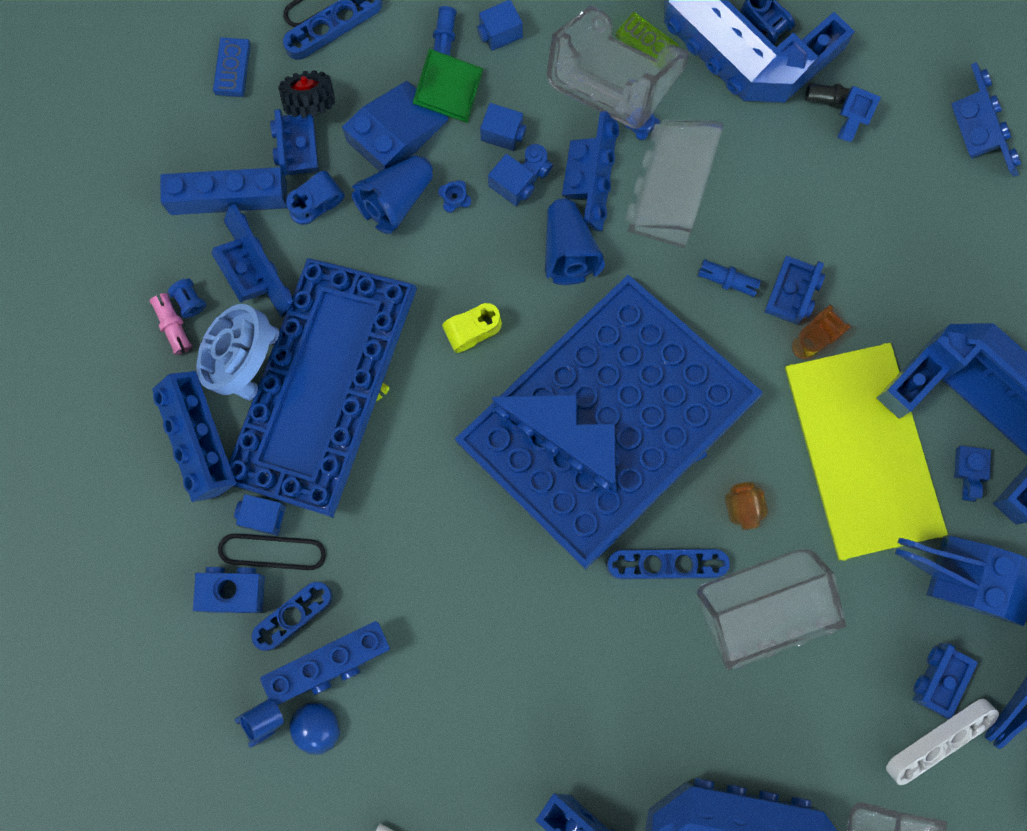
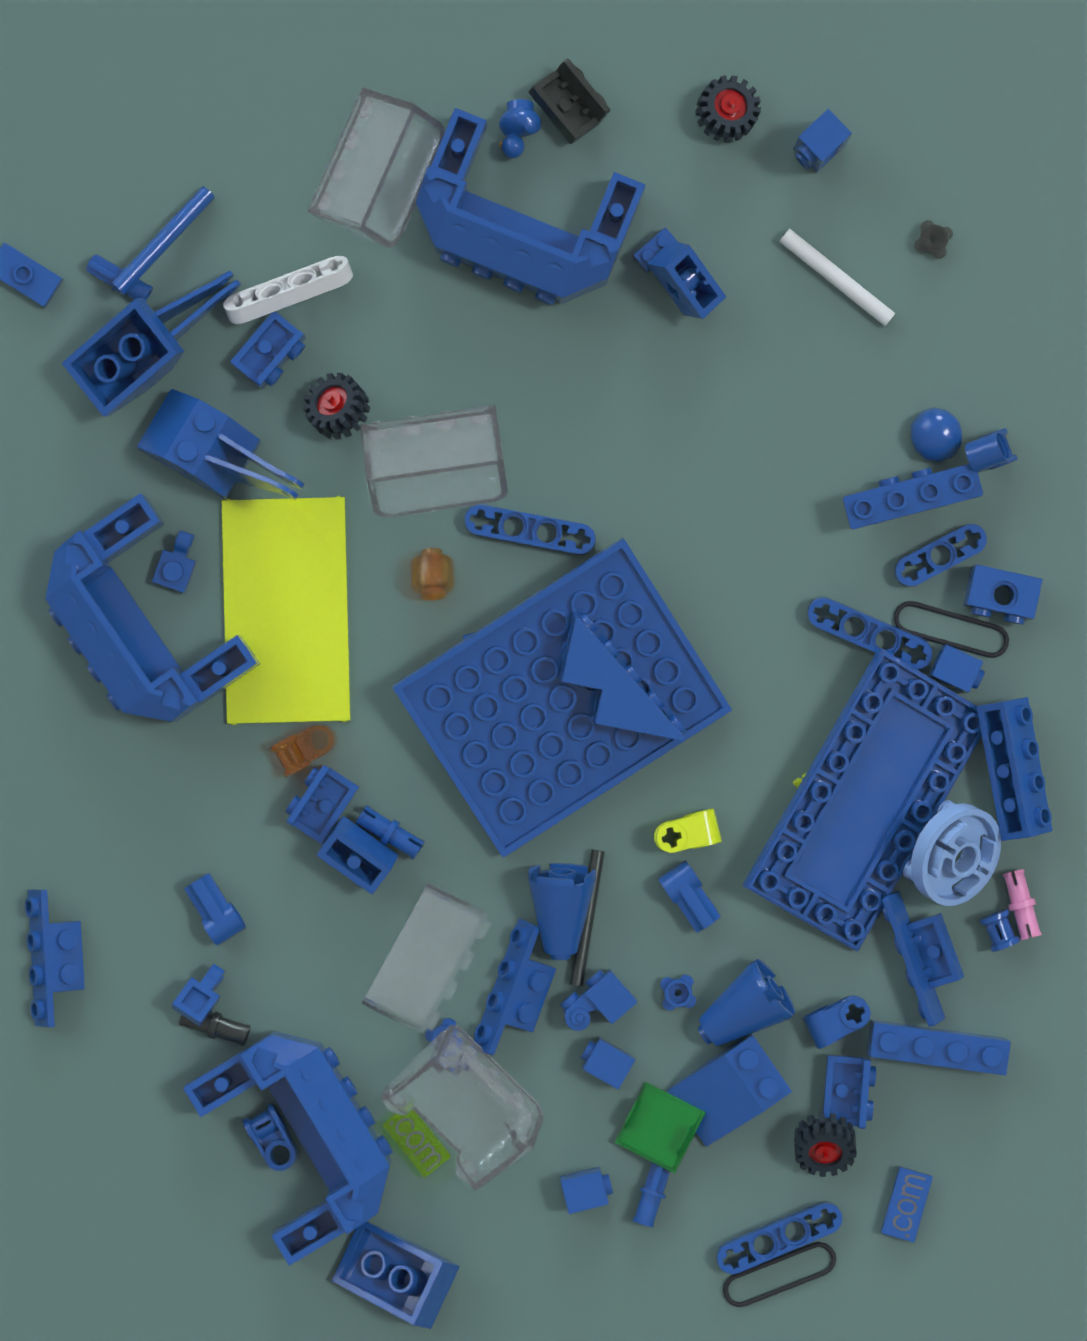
camera: 175 degrees left, 10 degrees up
(343, 536) = (872, 627): none -> blue beam
(466, 280) = (685, 890): none -> blue piece
(542, 207) = (581, 956): none -> pearl dark grey bar
(754, 250) = (357, 855): none -> blue brick
(856, 180) = (218, 916): none -> blue piece
(872, 640) = (336, 406): none -> black wheel

